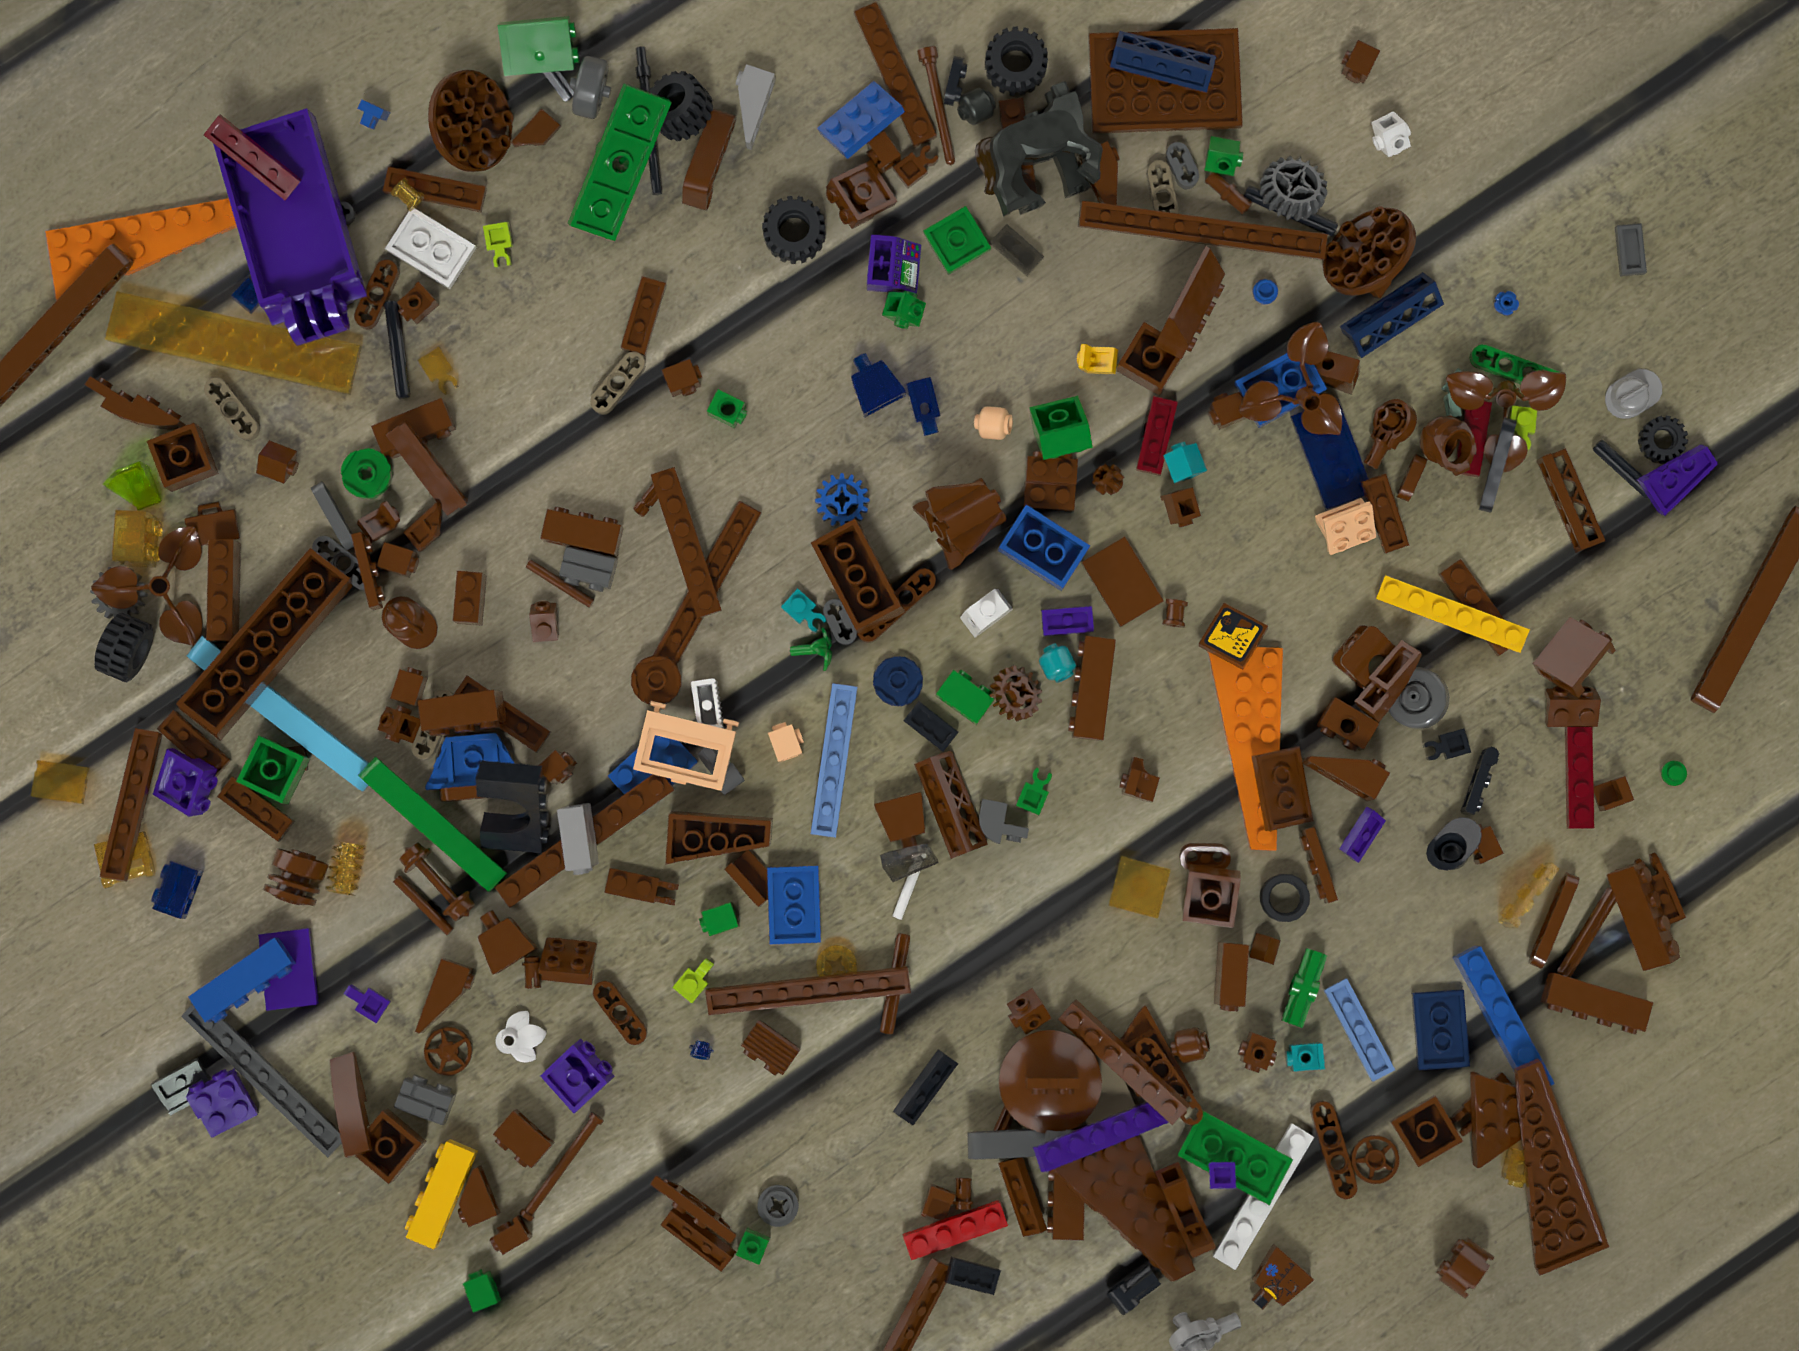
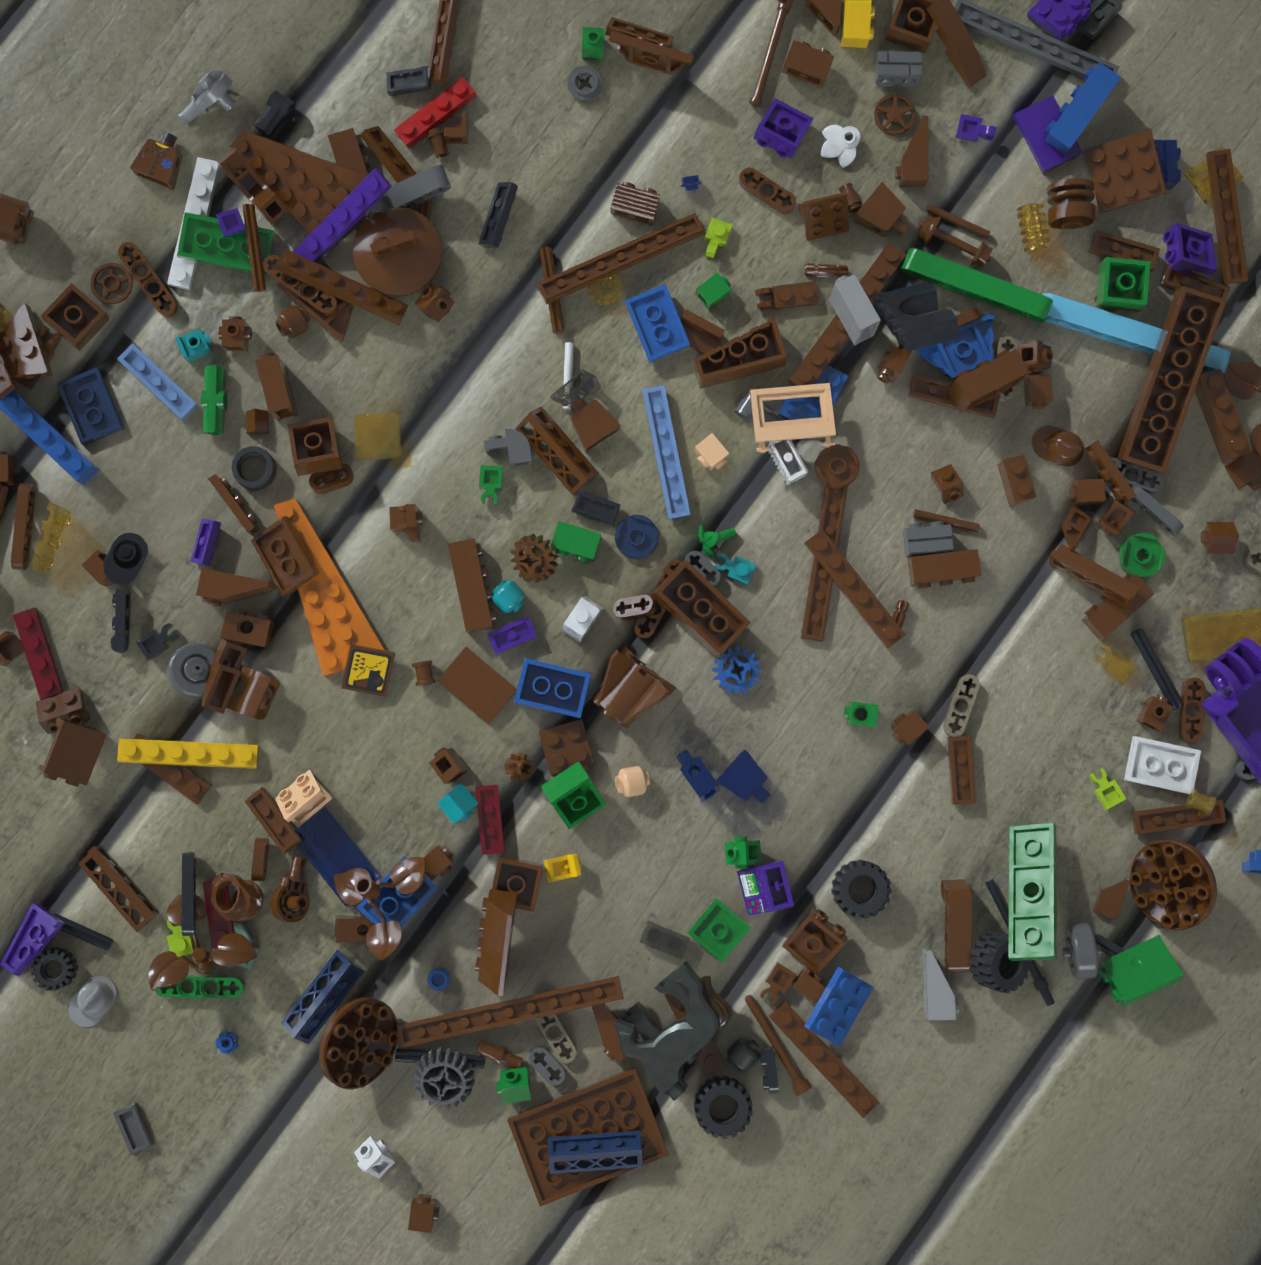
camera: 150 degrees right, 0 degrees up
(221, 894) = (1125, 171): none -> reddish brown plate
(588, 900) = (825, 270): none -> reddish brown axle
(928, 599) = (635, 604): none -> beam
(1205, 1140) = (254, 247): none -> reddish brown axle

